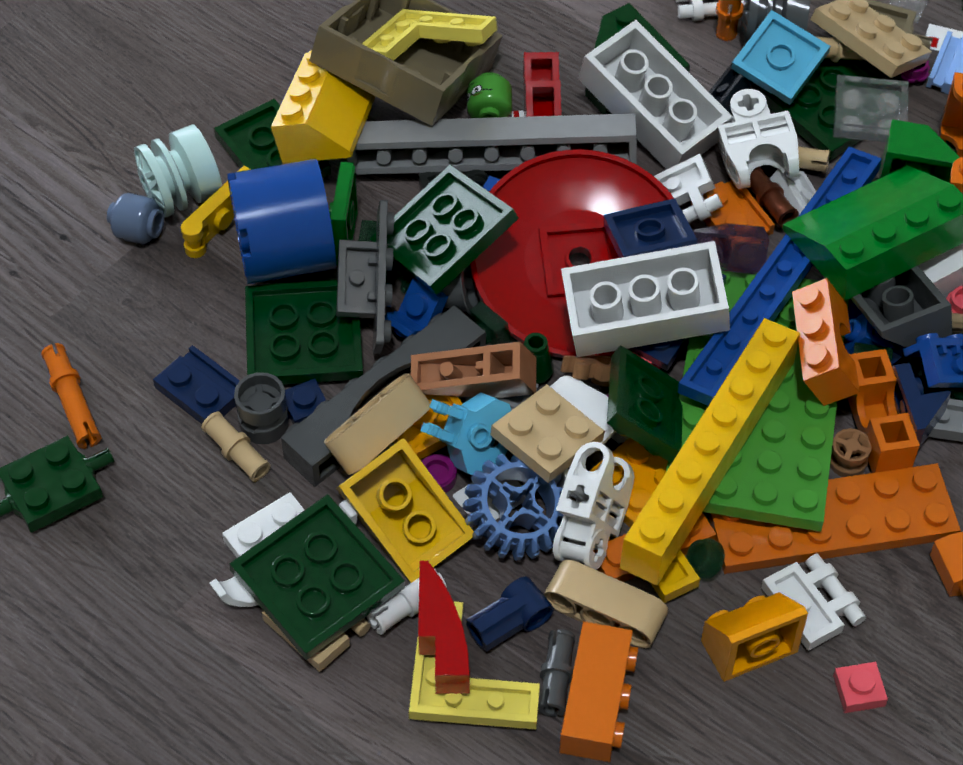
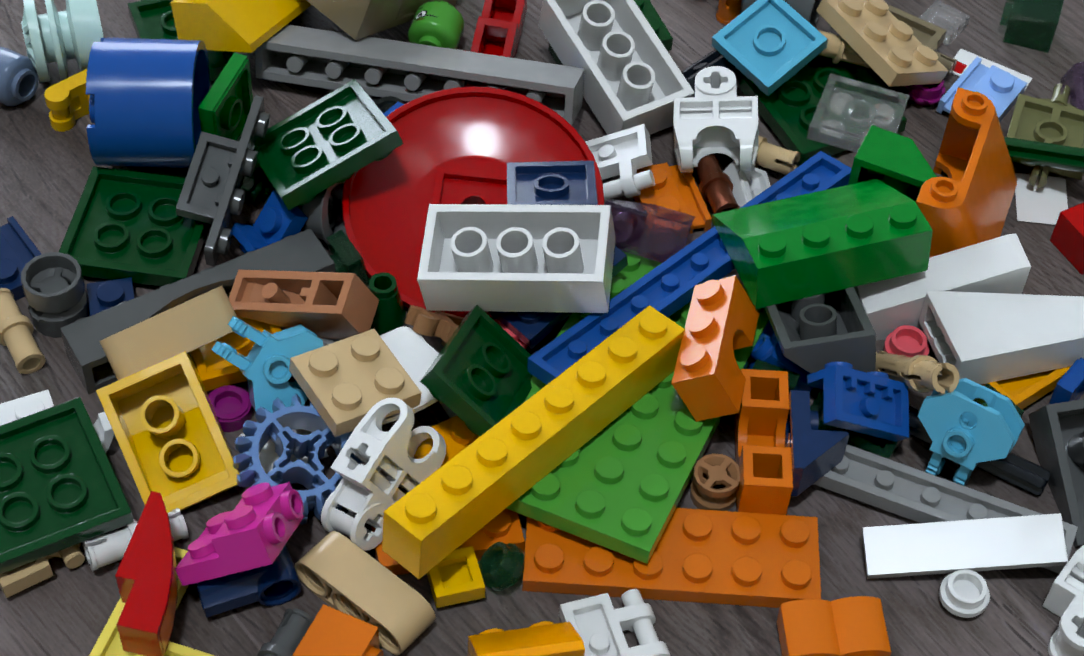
camera: 10 degrees right, 5 degrees down
(503, 582) = (244, 537): none -> dark pink plate

